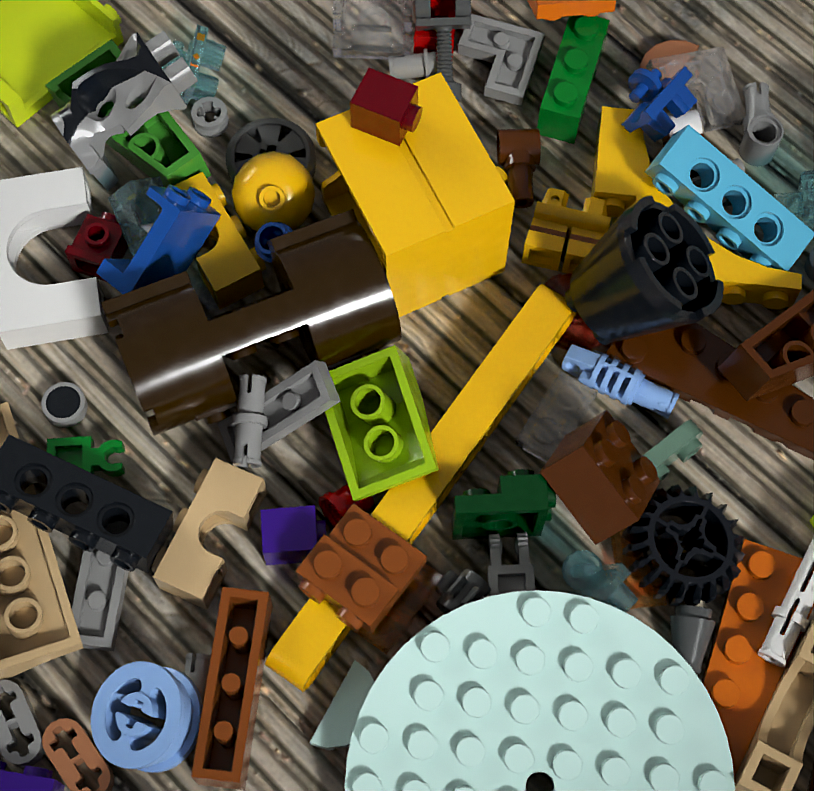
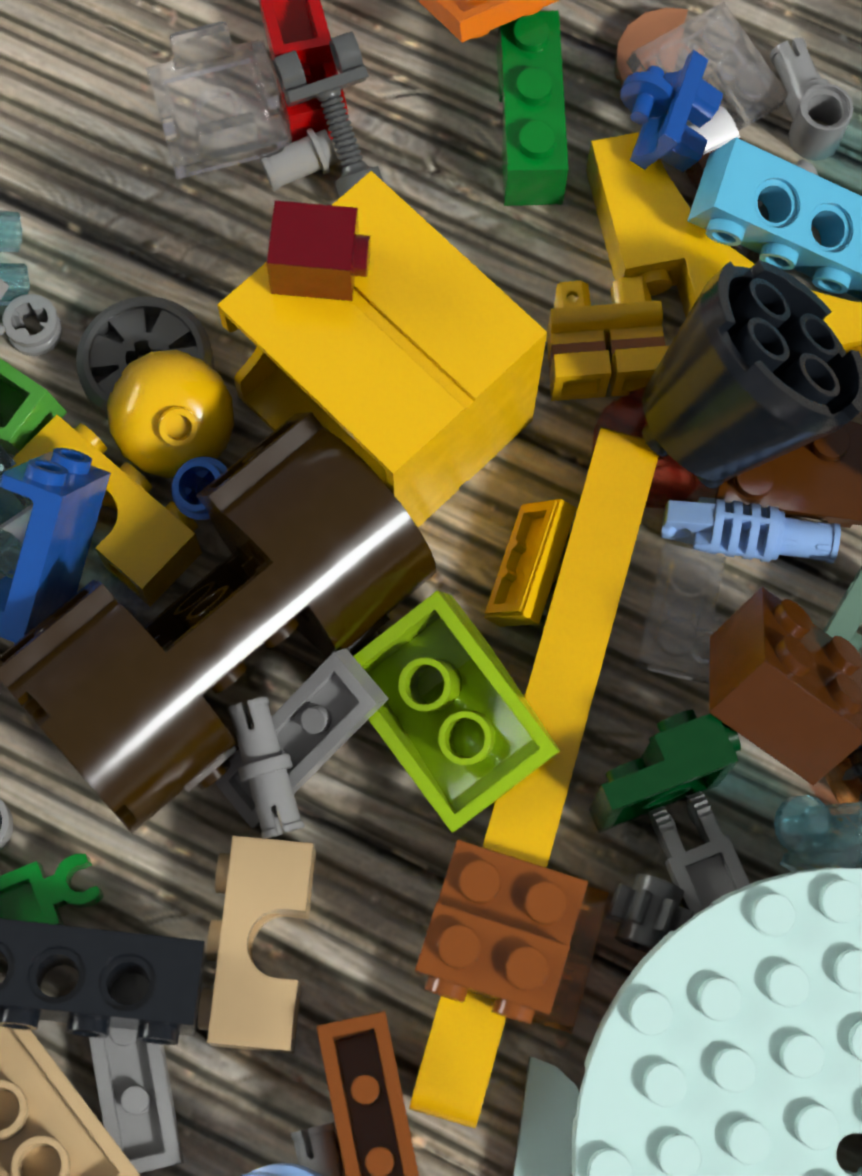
camera: 20 degrees left, 5 degrees up
(290, 533) = (380, 907): dark purple brick -> none
(337, 504) = (431, 842): red piece -> none
(466, 355) = (530, 563): none -> yellow plate
(510, 49) = (432, 95): light grey plate -> none
(519, 154) = (496, 245): reddish brown pin -> none

